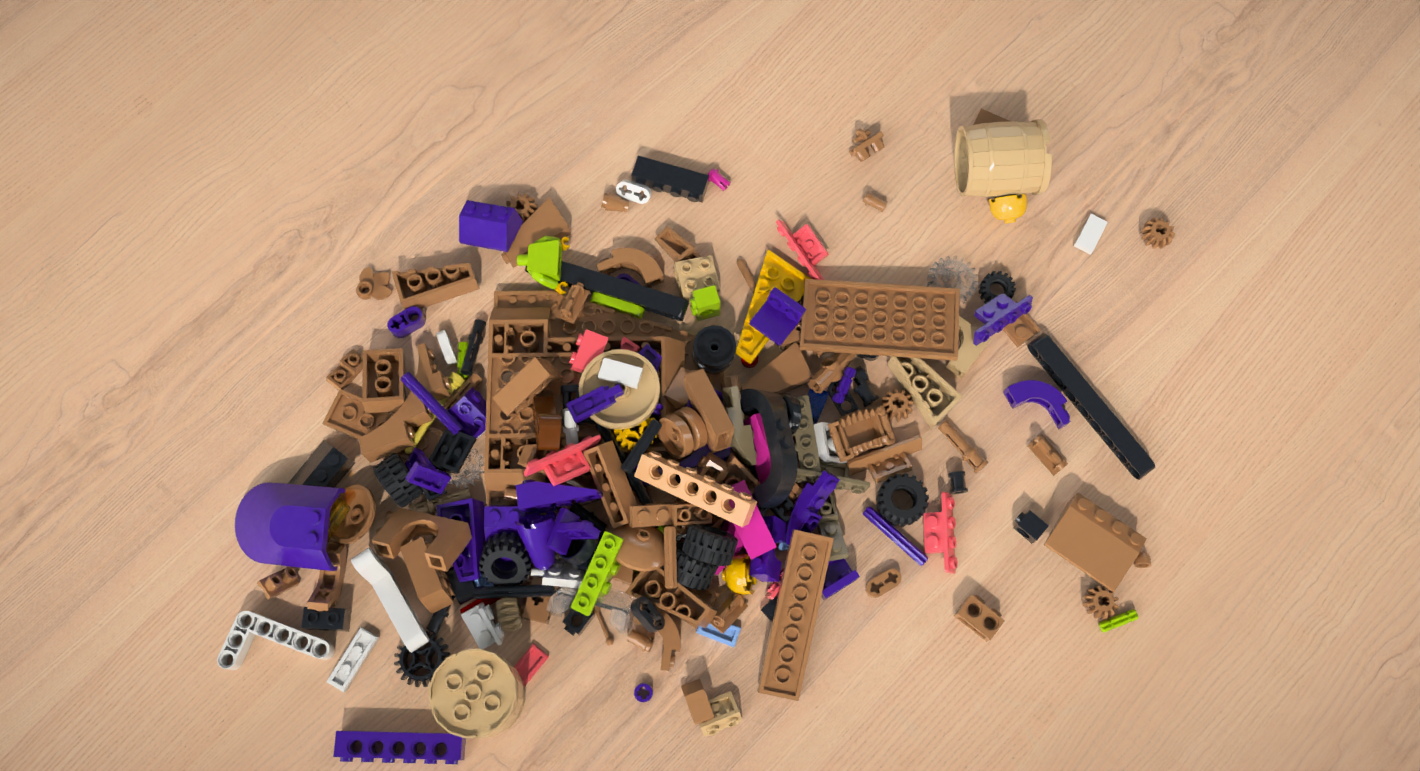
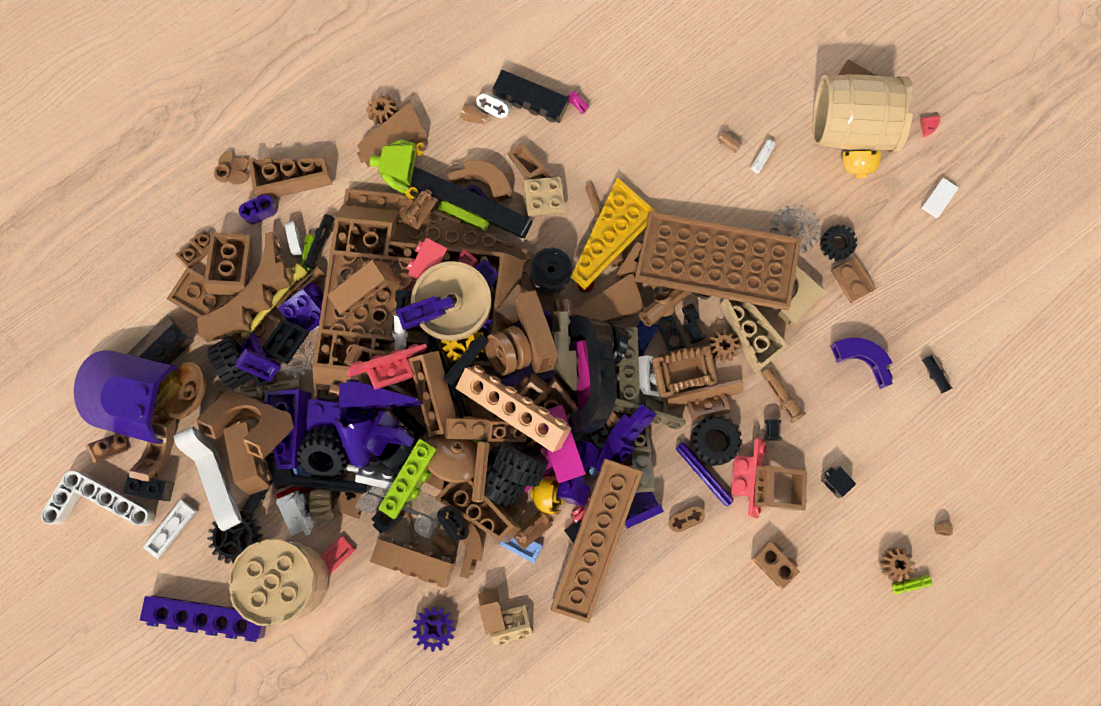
camera: 10 degrees right, 5 degrees up
(431, 403) = (270, 292): dark purple axle -> none
(488, 225) = (347, 123): dark purple slope -> none
(546, 423) = (375, 326): reddish brown beam -> none
(610, 661) = (413, 562): none -> medium nougat wedge
(620, 373) = (453, 285): white tile -> none
(634, 735) = (426, 621): none -> dark purple gear
(647, 687) = (437, 600): dark purple bush -> none
(705, 303) = (548, 224): lime brick -> none
(778, 316) = (617, 246): dark purple bracket -> none
(807, 247) = (656, 179): coral bracket -> none
(844, 385) = (674, 321): dark purple axle -> none
(874, 141) = (737, 81): medium nougat hips -> none
(910, 212) = (763, 156): none -> white axle
(959, 549) = (765, 496): none -> medium nougat window
(998, 314) = (836, 268): dark purple bracket -> none
(1047, 454) = (865, 413): medium nougat hinge -> none
(1070, 163) = (929, 124): none -> coral tile
(1091, 406) = (915, 370): black beam -> none
(1095, 541) = (900, 505): medium nougat slope -> none
(1114, 406) = (937, 374): none -> black pin
(1158, 233) = (1007, 204): medium nougat gear -> none

